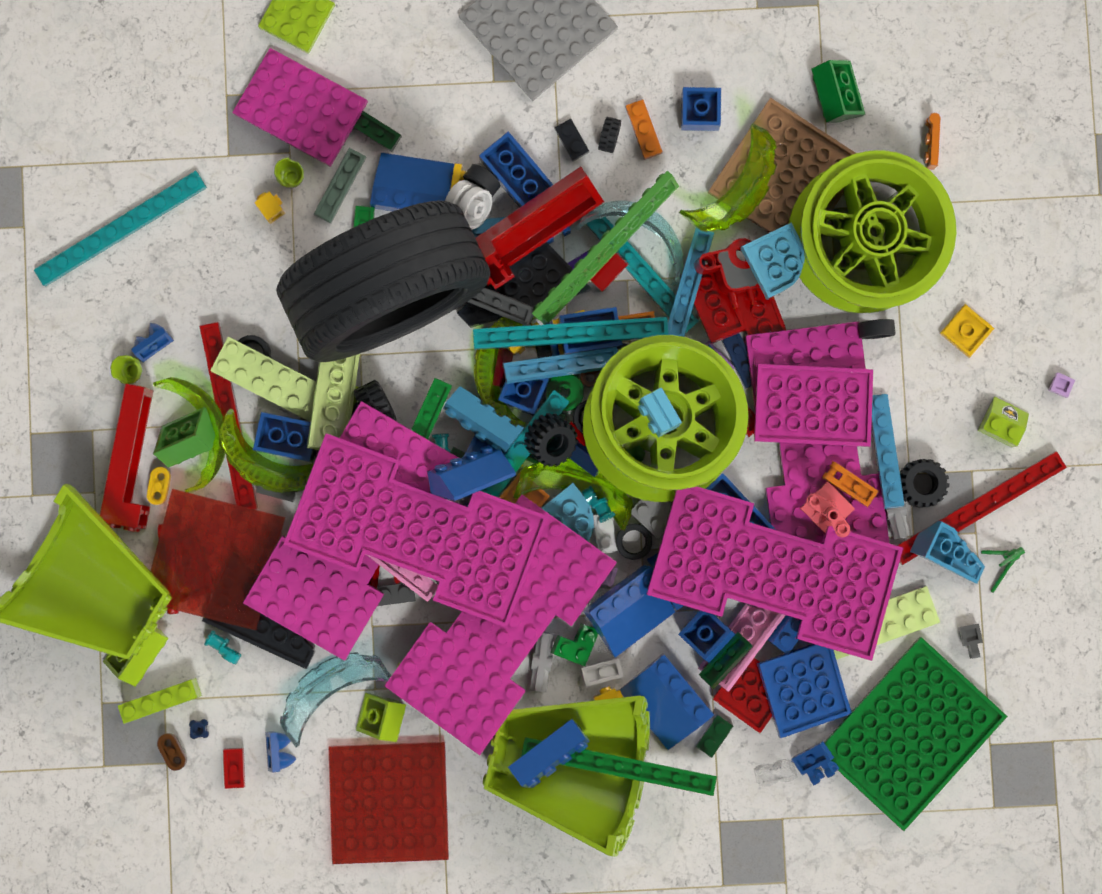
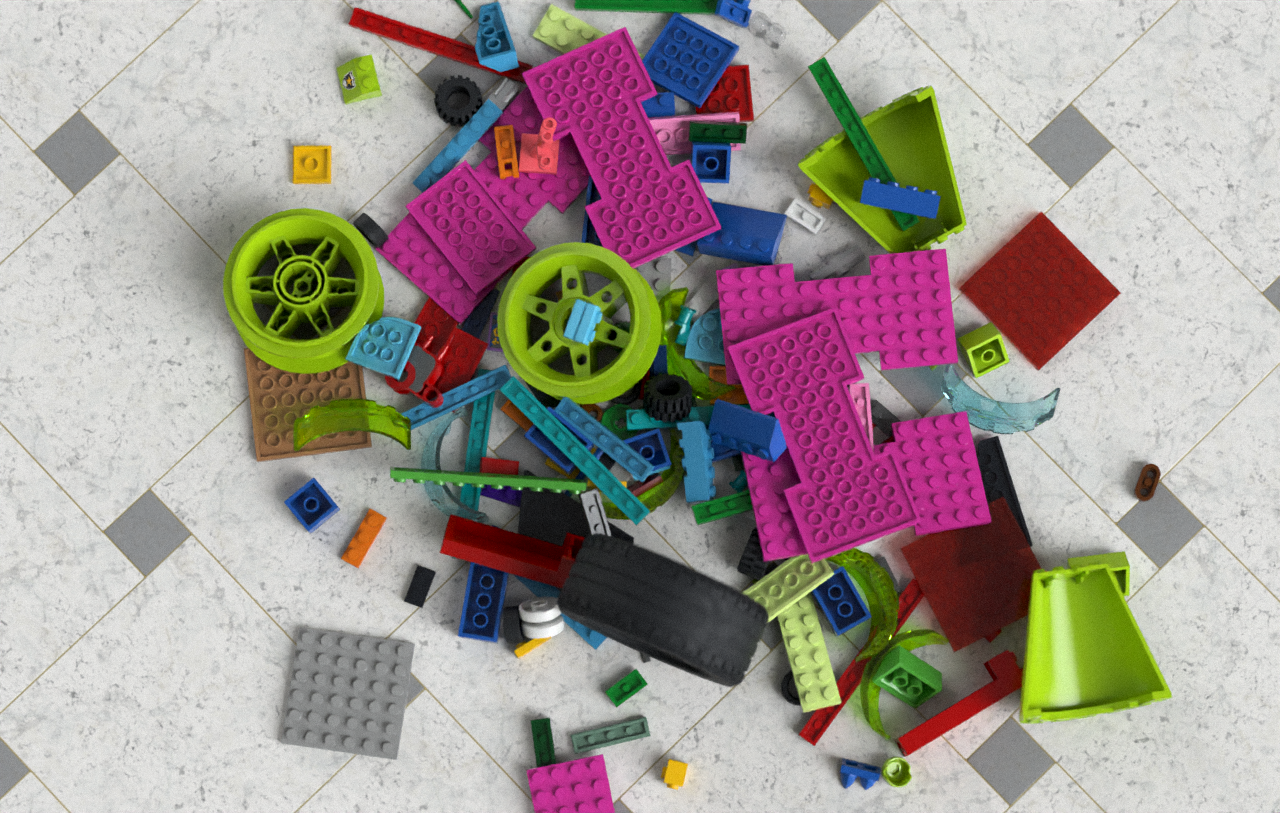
camera: 135 degrees left, 5 degrees down
(157, 485) = (961, 669): yellow plate -> none
(159, 700) = (1118, 524): lime brick -> none
(194, 733) = (1118, 477): dark blue plate -> none
(220, 645) = (1037, 515): teal connector -> none
(234, 768) = (1117, 426): red plate -> none
(275, 759) = (1083, 401): blue tile -> none
(288, 173) = (636, 781): lime hair -> none
(409, 181) = (561, 677): blue slope -> none
(579, 649) = (805, 248): green plate -> none
(609, 134) = (392, 557): black tyre -> none
(648, 542) = (693, 262): black tyre -> none
(671, 701) = (782, 144): blue slope -> none
(714, 736) = (779, 96): dark green plate -> none
(838, 91) = (207, 414): green slope -> none
(932, 140) = (185, 311): orange plate -> none
(1061, 385) = (294, 61): lavender plate -> none

